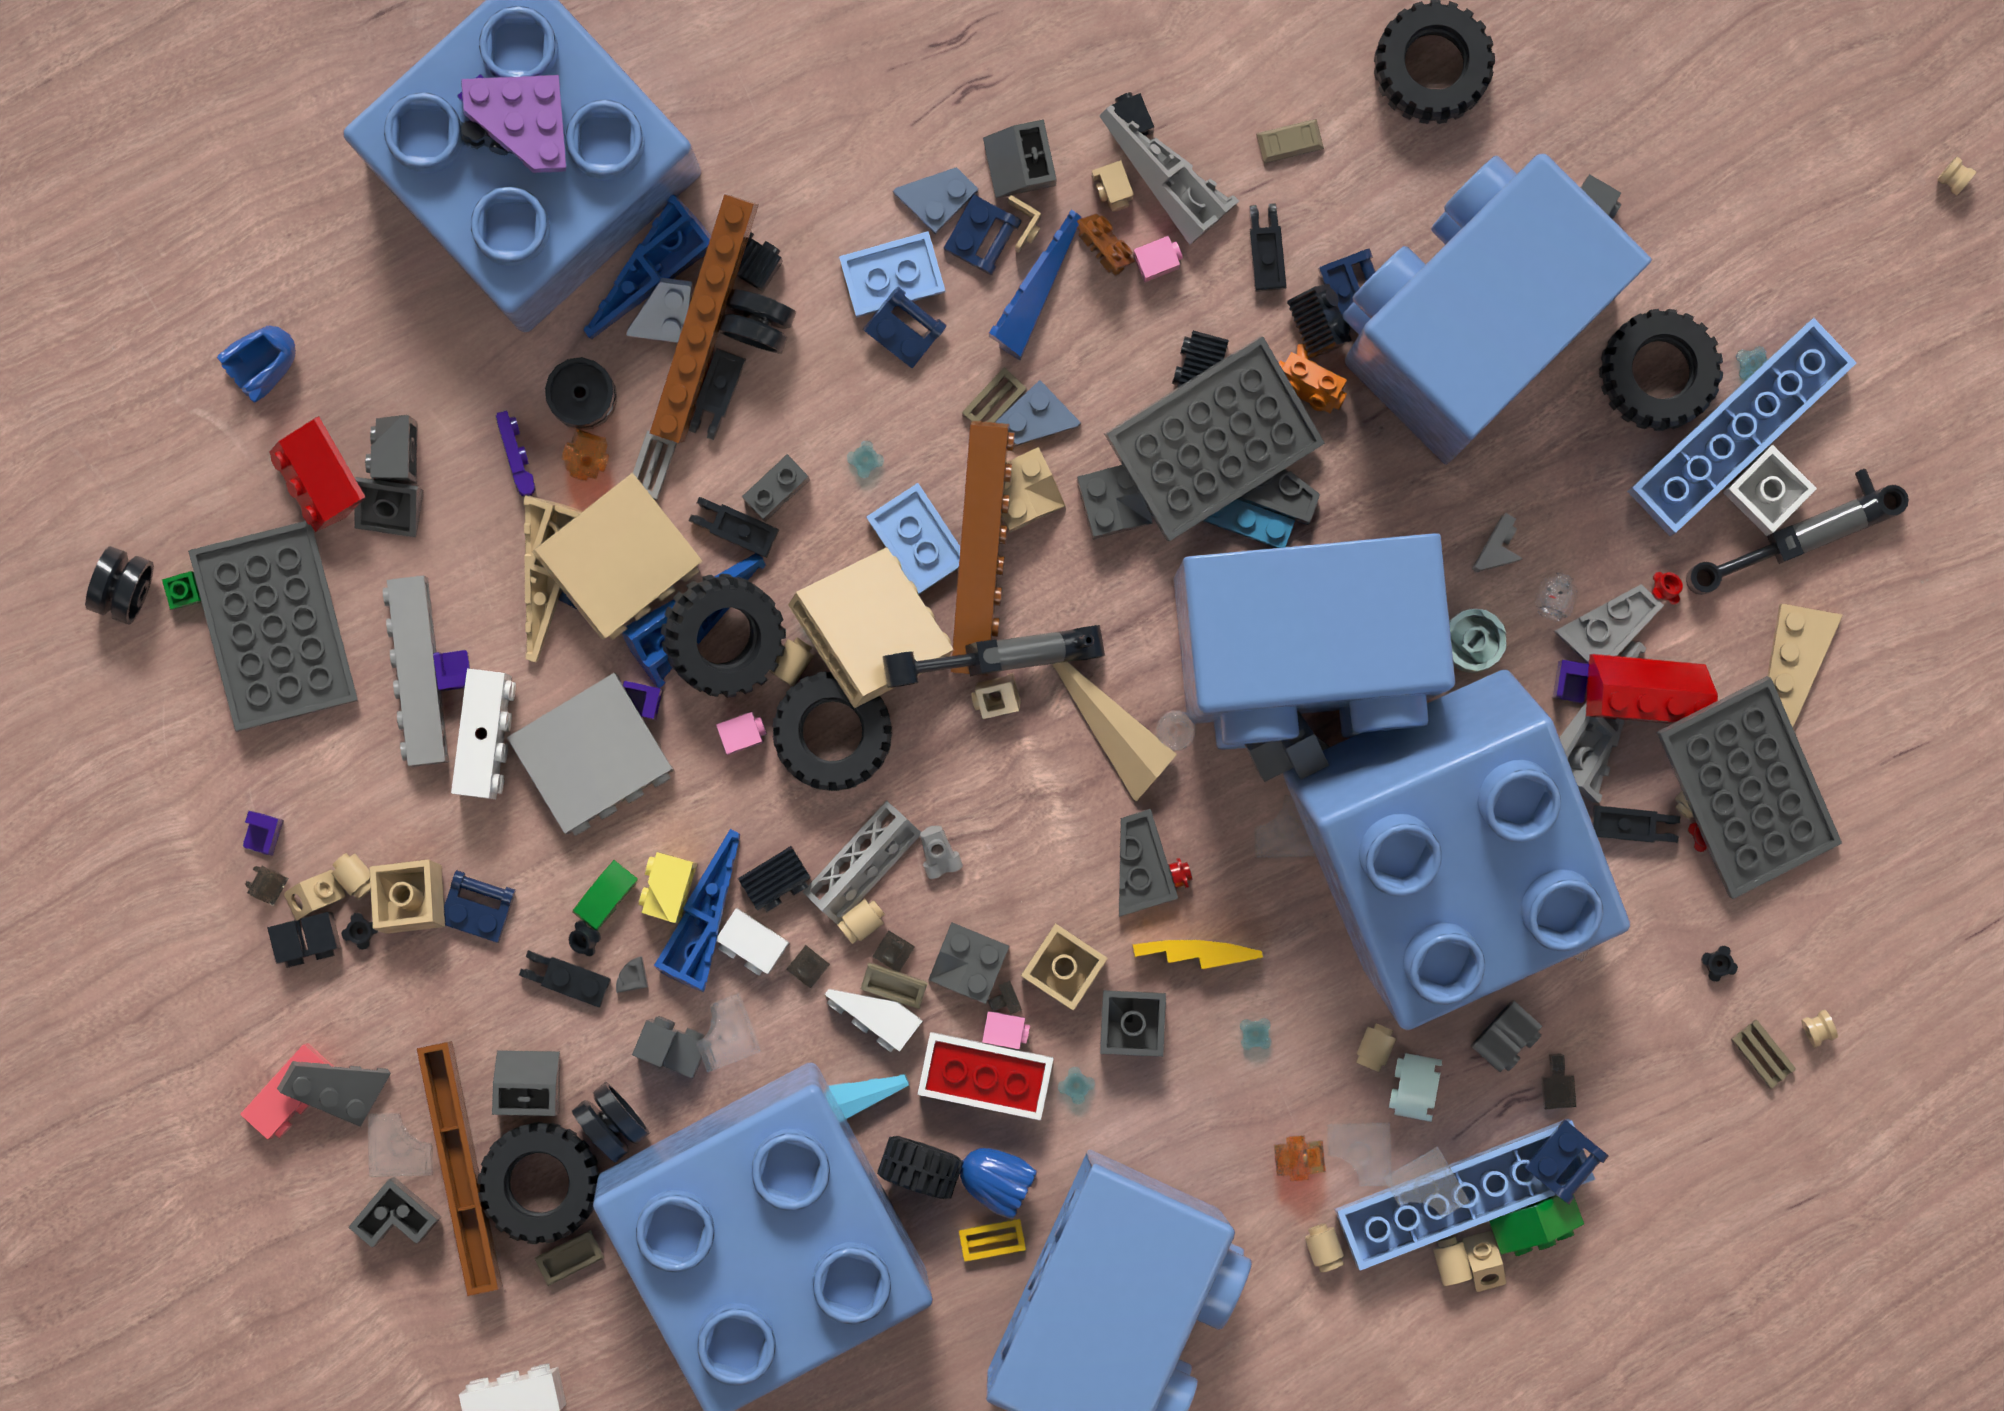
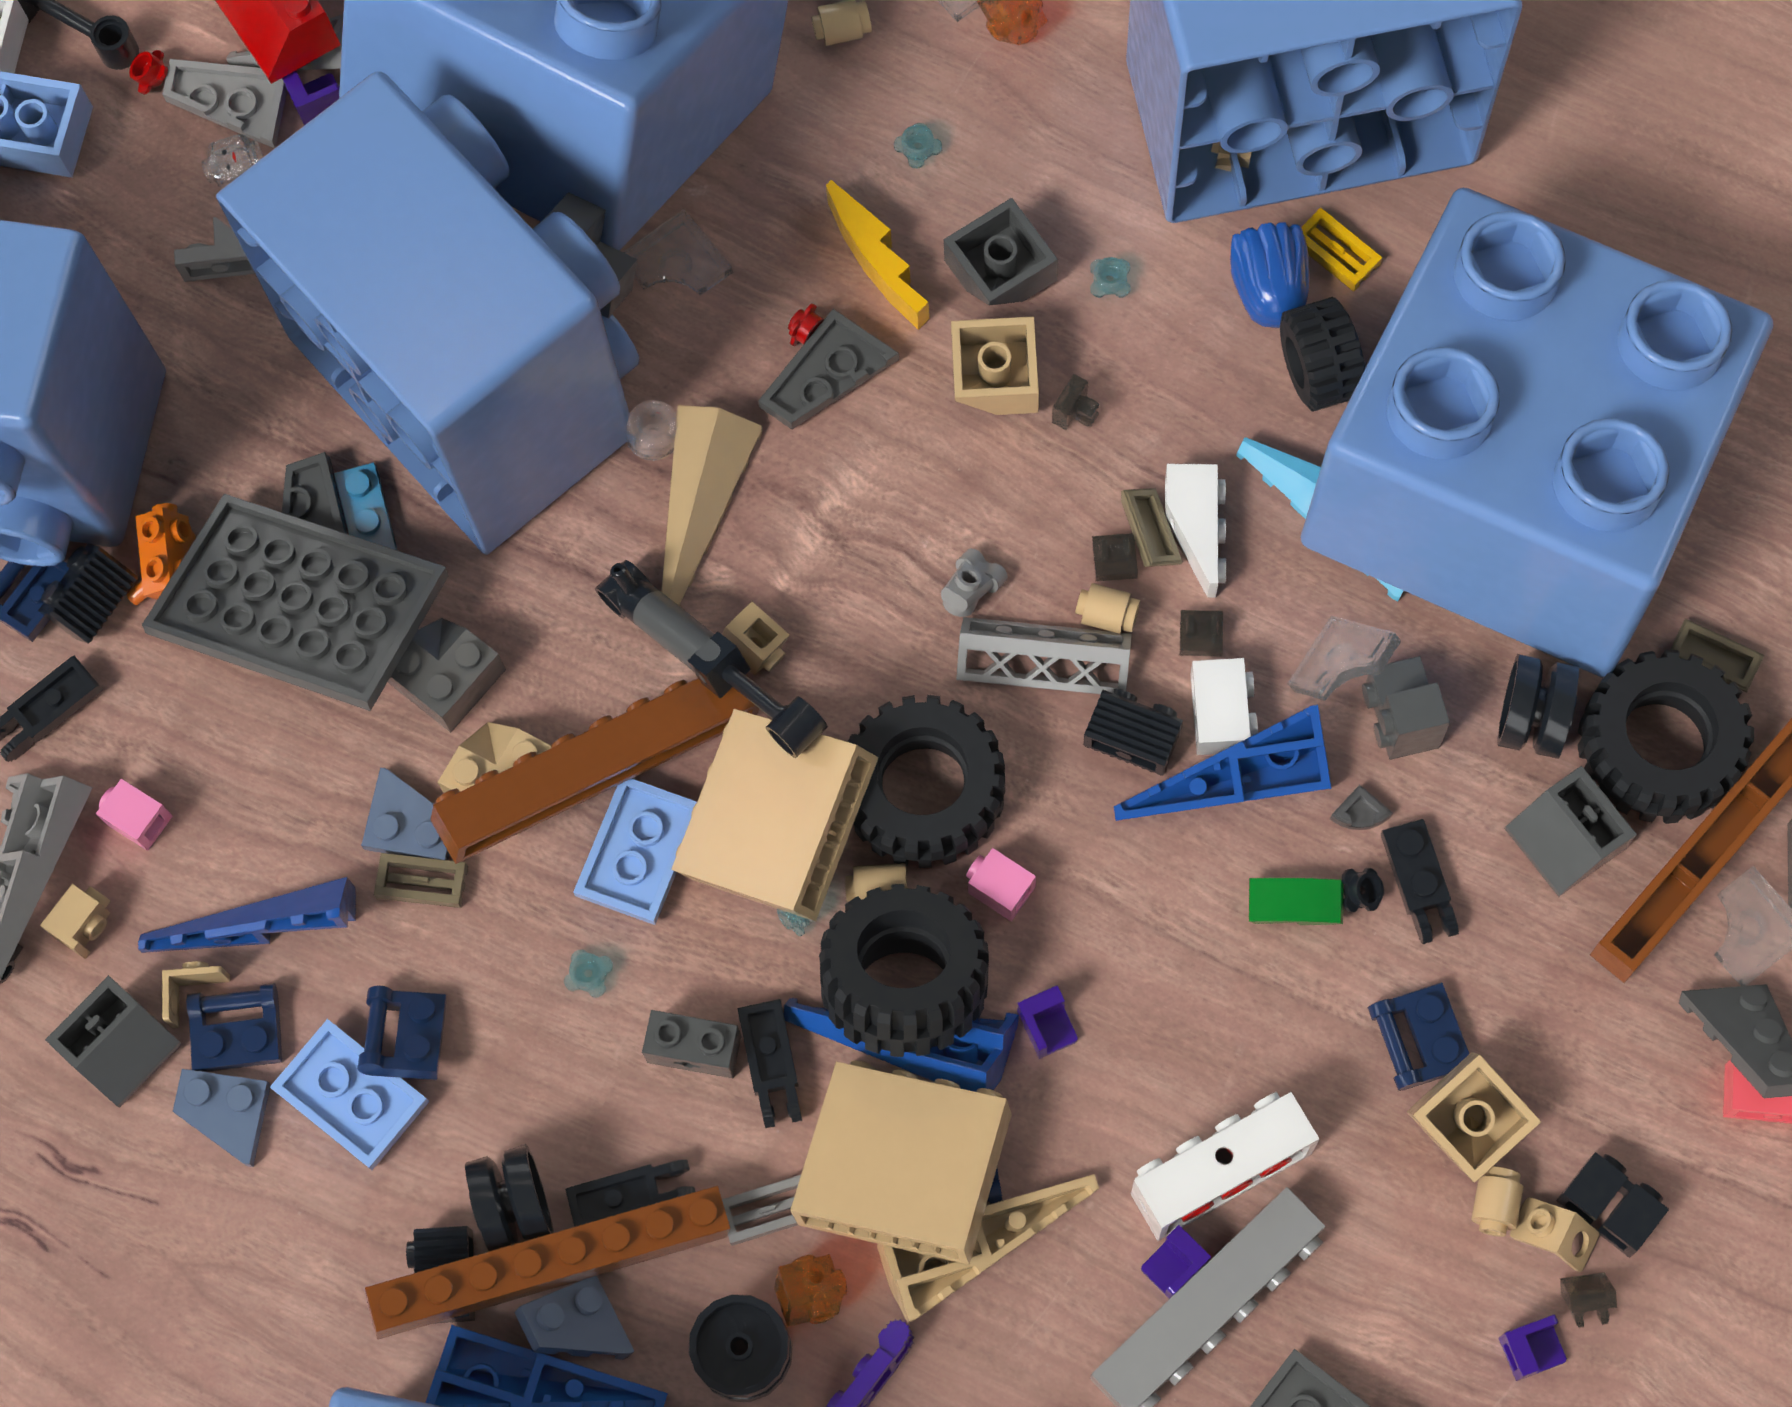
camera: 120 degrees left, 15 degrees down
(350, 933) = (1560, 1138): black plate -> none
(591, 755) = (1150, 1031): light grey panel -> none
(668, 888) = (1233, 832): light yellow slope -> none
(968, 962) = (1066, 466): dark grey slope -> none
(985, 1076) = (1173, 364): red brick -> none
(1005, 1030) = (1110, 383): bright pink brick -> none
(1098, 230) = (153, 859): dark orange hinge -> none
(1201, 353) = (219, 687): black brick -> none

